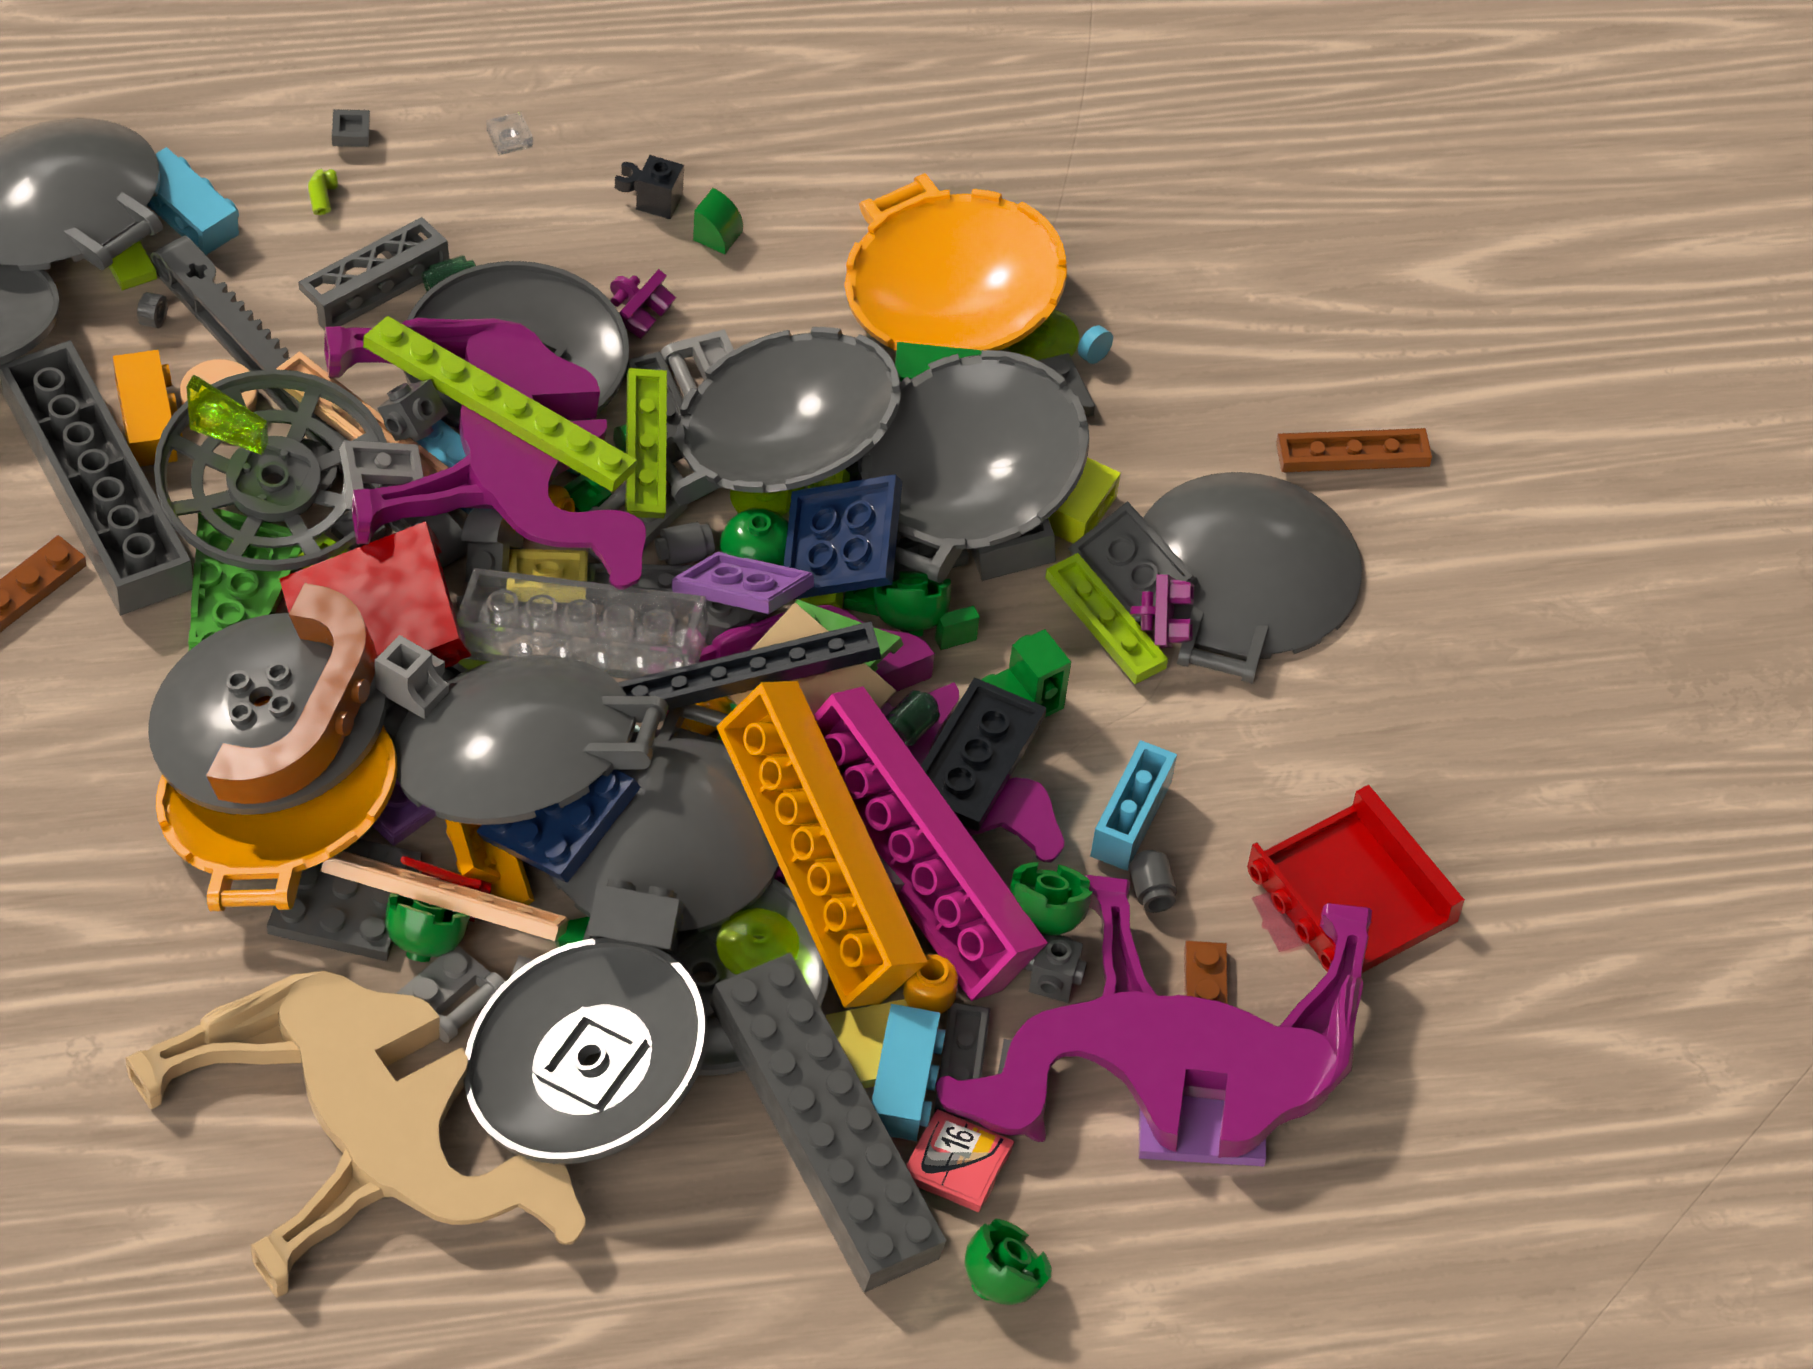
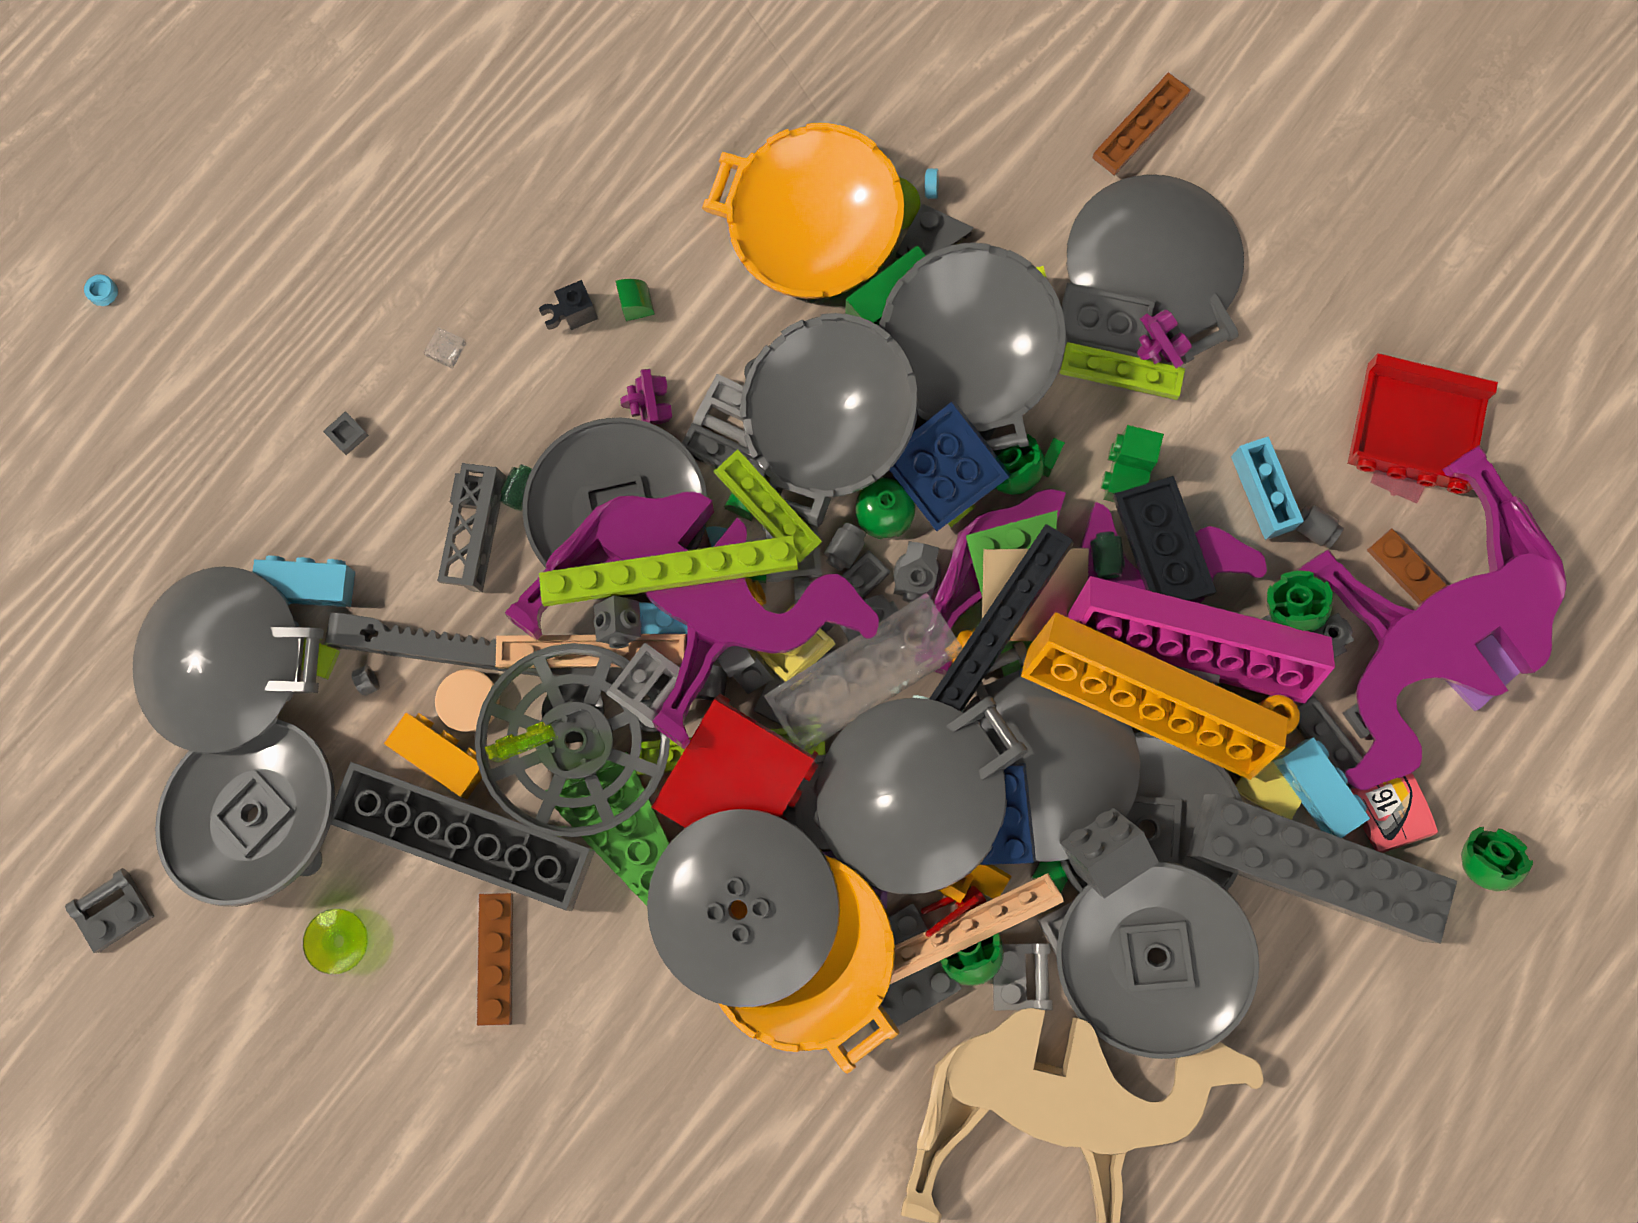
camera: 35 degrees left, 25 degrees up
(308, 749) = (799, 885): arch -> none
(318, 191) = (372, 497): lime arm -> none
(411, 676) = (817, 815): light grey brick -> none
(742, 951) = (1156, 798): clear neon green dish -> none
(743, 582) = (917, 549): medium lavender tile -> none

